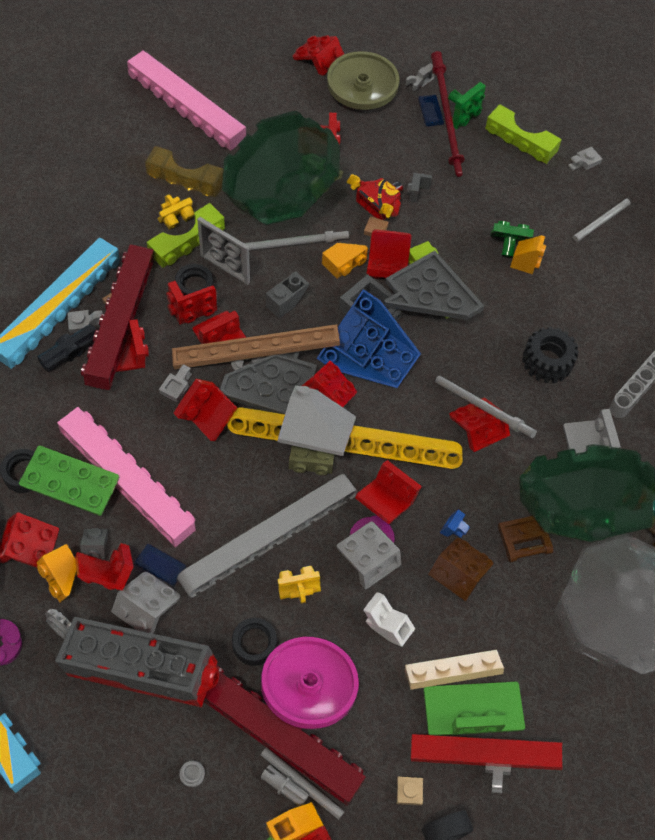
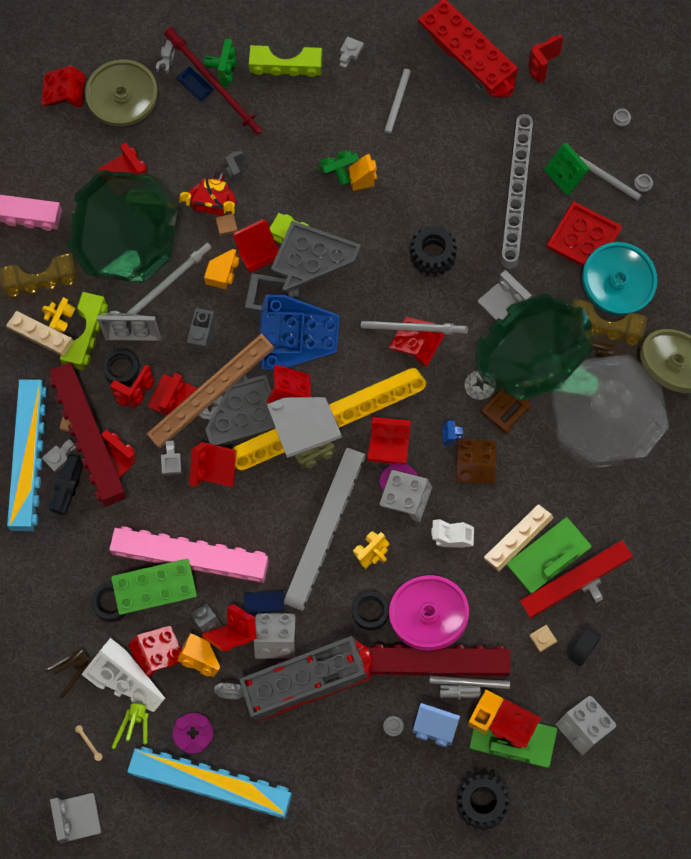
camera: 25 degrees left, 10 degrees up
(148, 214) = (39, 333): none -> tan plate
(233, 803) = (435, 725): none -> light blue slope
(505, 503) = (475, 391): none -> light grey gear

